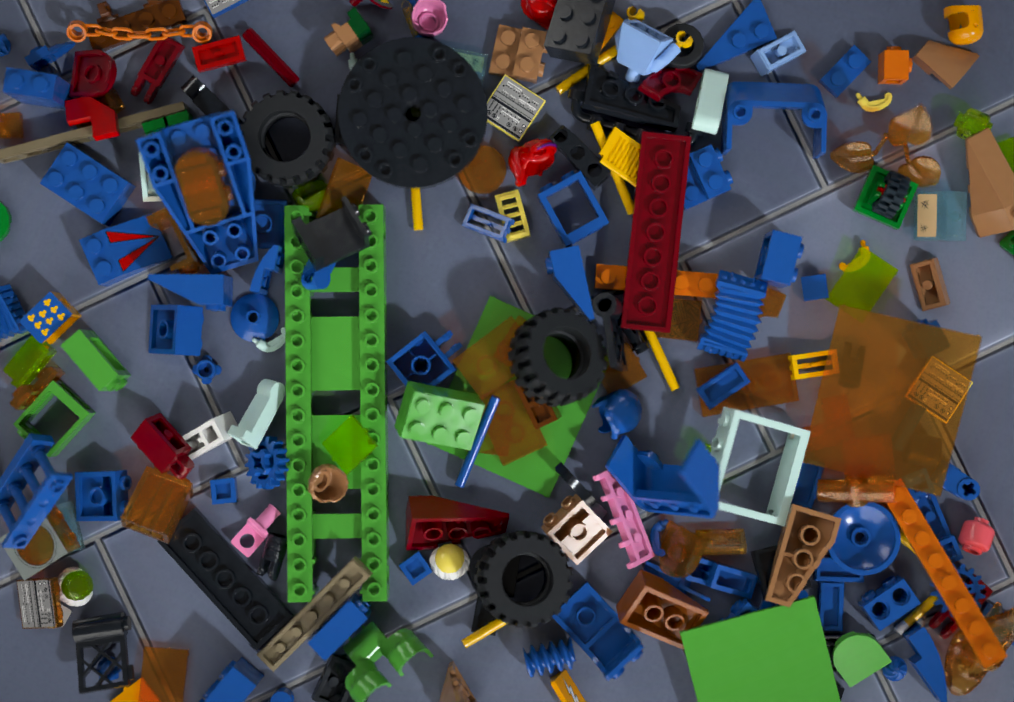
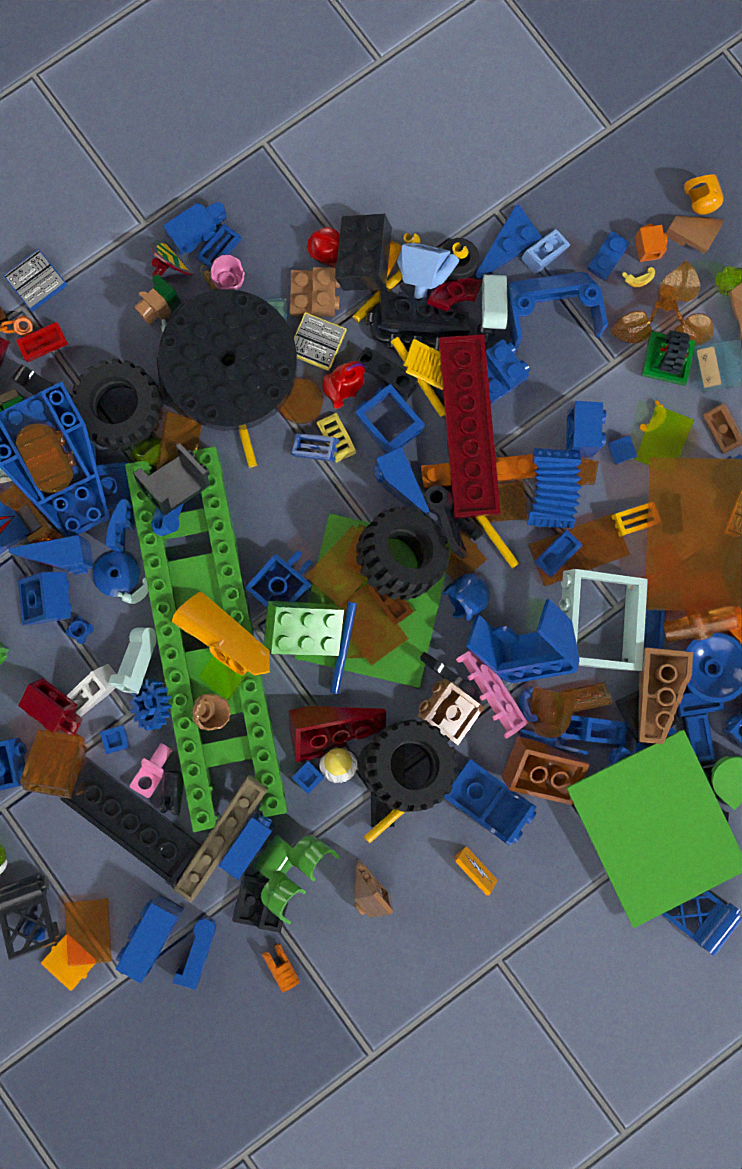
camera: 20 degrees left, 5 degrees down
(270, 57) = (89, 336): dark red axle -> none
(355, 408) = (223, 635): none -> light orange panel
(549, 657) = (450, 836): blue piece -> none

